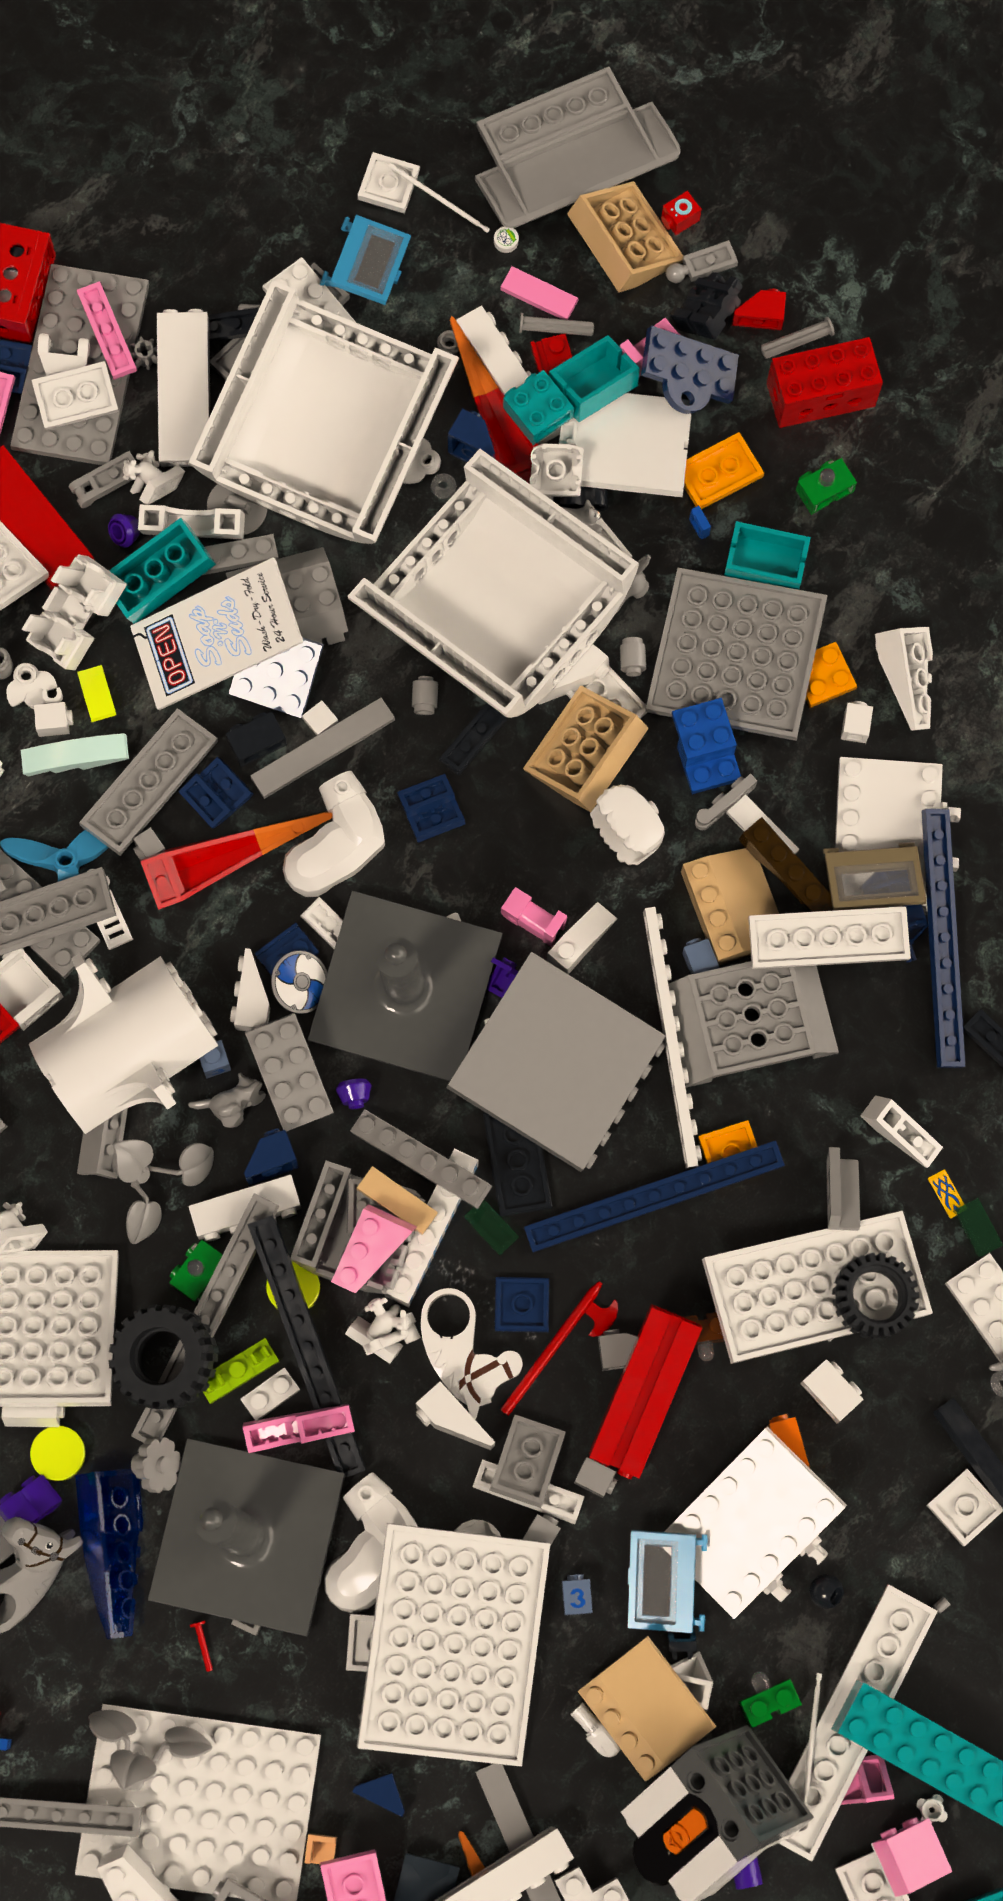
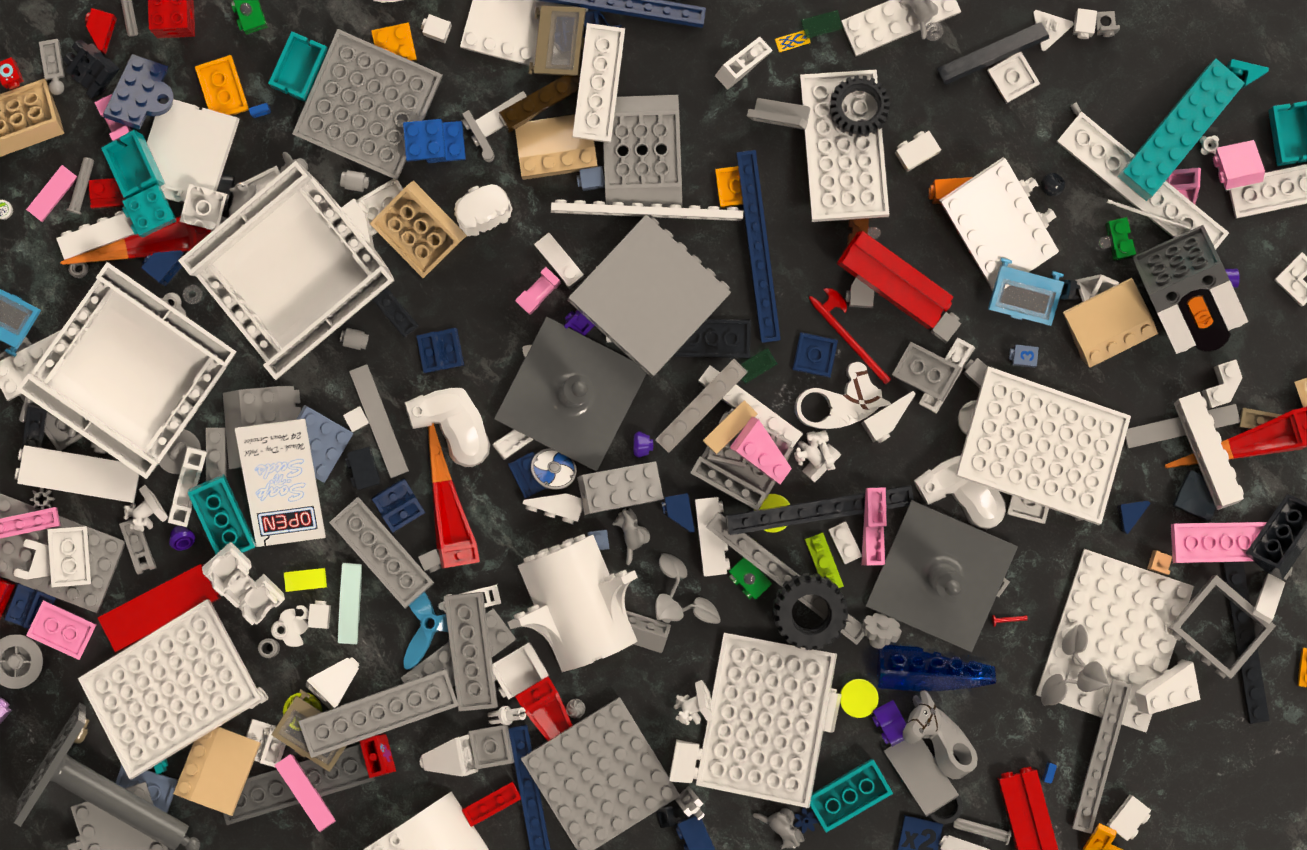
camera: 75 degrees left, 10 degrees up
(596, 1732) = (1117, 361): white arm -> none

